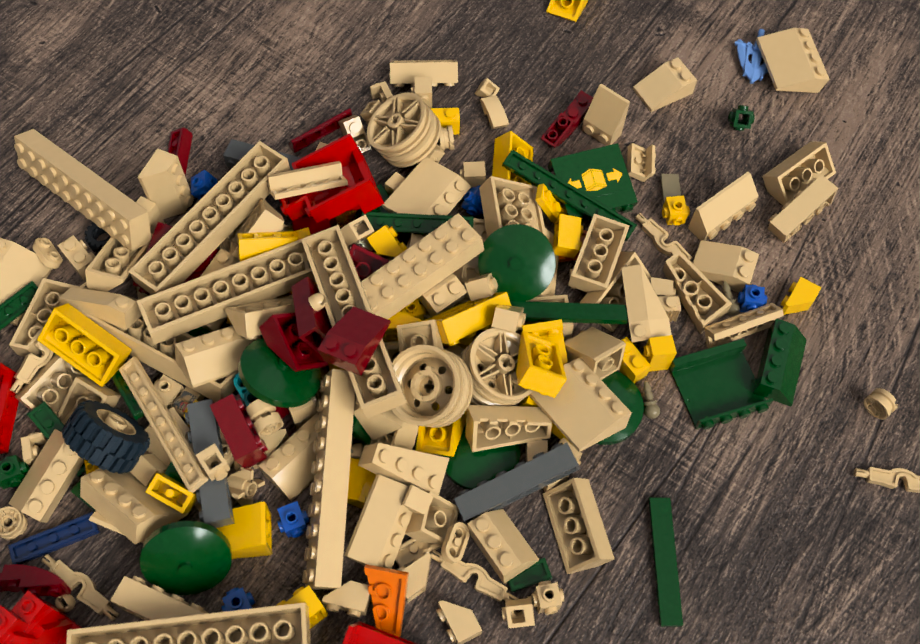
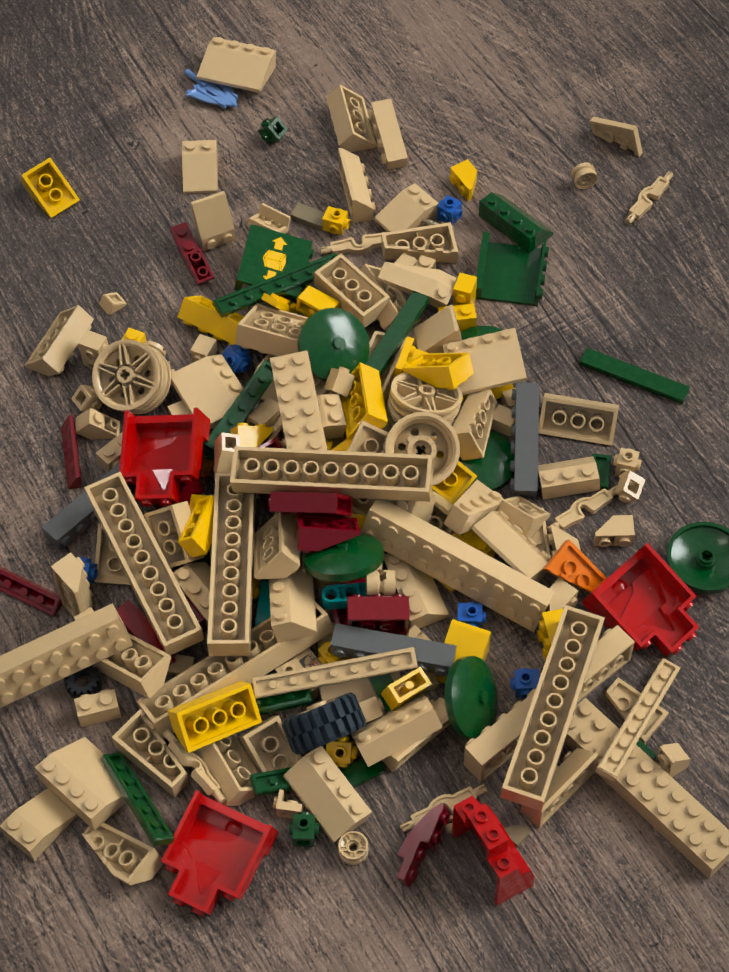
camera: 60 degrees left, 5 degrees down
(47, 253) = (79, 734): tan plate -> none
(52, 539) = (386, 817): dark blue tile -> none
(109, 307) = (184, 683): tan wedge -> none
(210, 457) = (404, 635): tan brick -> none
(306, 180) = (147, 468): tan fence -> none
(317, 301) = (307, 485): tan hinge -> none
(353, 340) = (365, 470): dark red slope -> none
(380, 90) = (65, 382): tan bracket -> none
(417, 500) = (508, 509): tan slope -> none
(455, 544) = (551, 505): tan plate -> none
(494, 110) = (139, 304): tan slope -> none
(508, 318) = (387, 370): tan slope -> none
(651, 408) = (501, 323): dark tan bar -> none
(742, 325) = (469, 227): tan fence -> none

